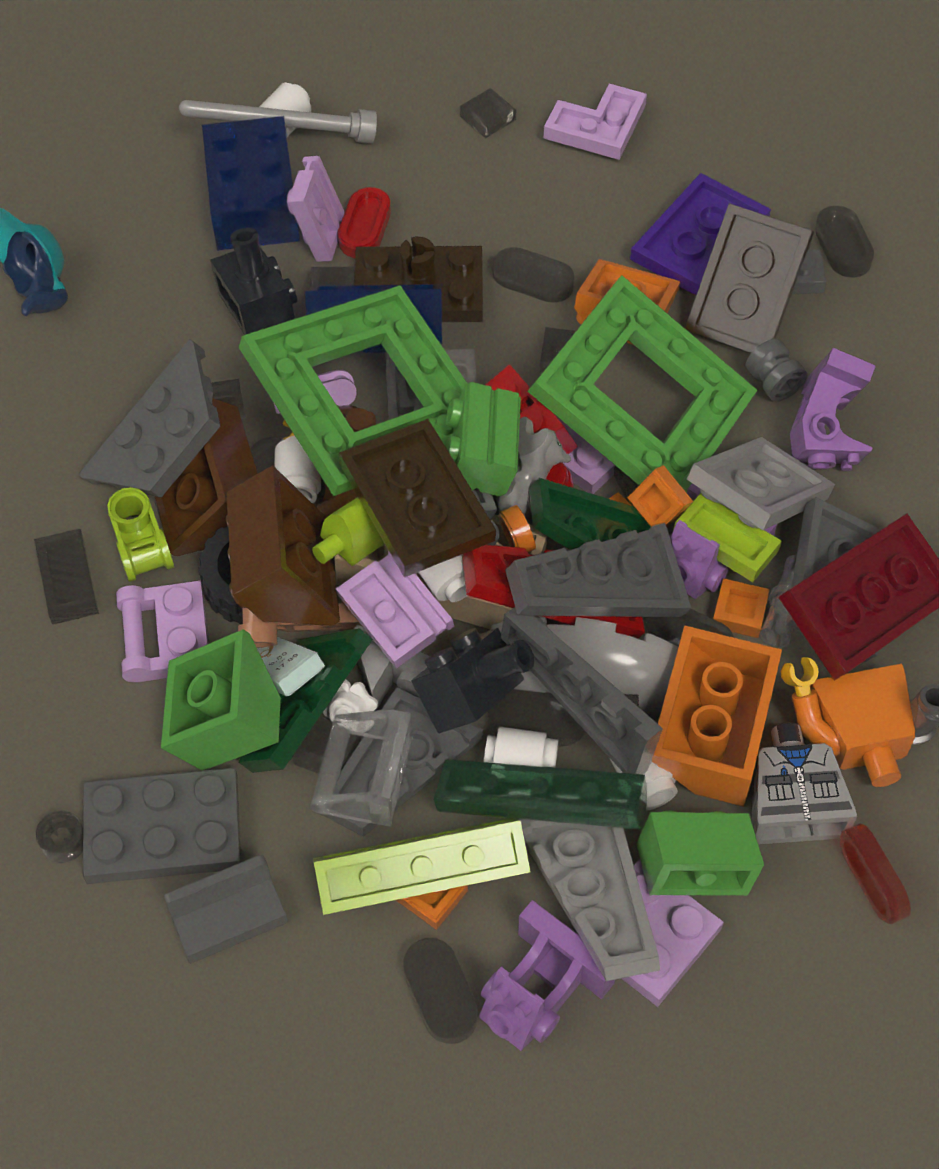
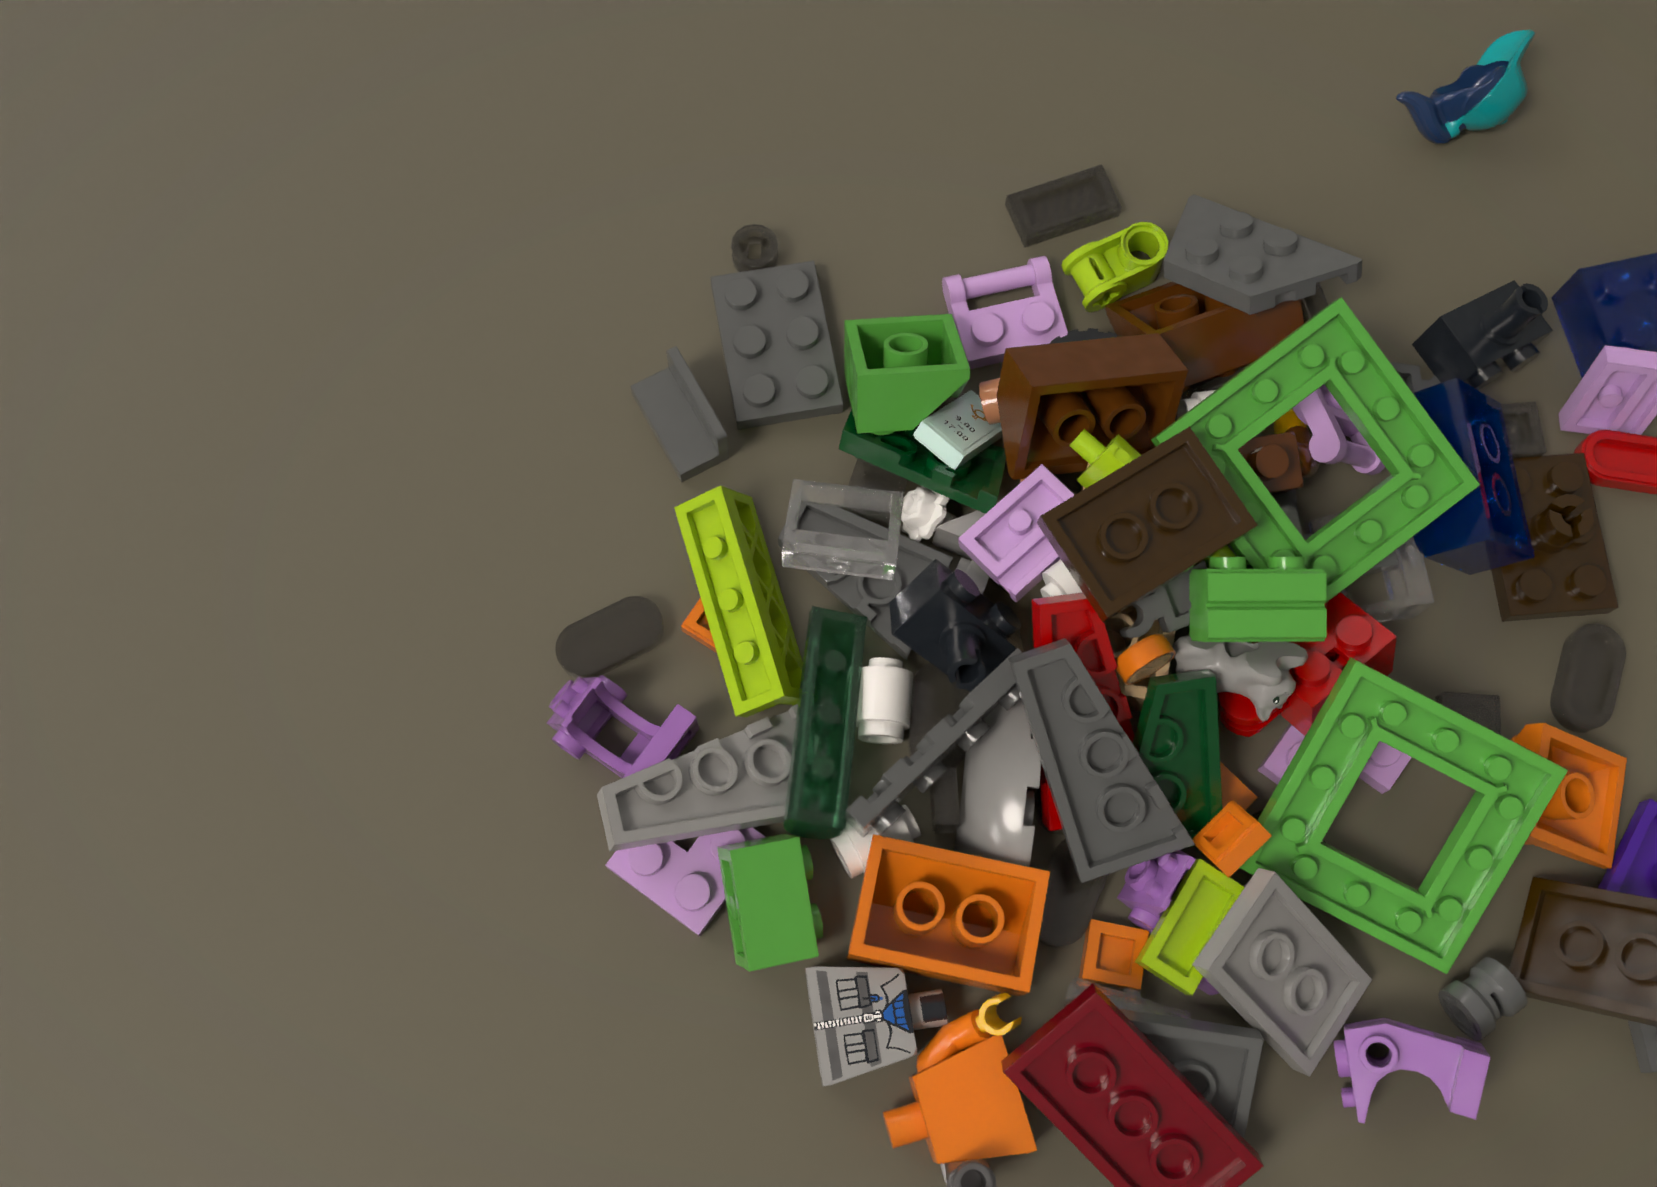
camera: 80 degrees right, 15 degrees up
(875, 874) = (765, 1110): clear red tile -> none

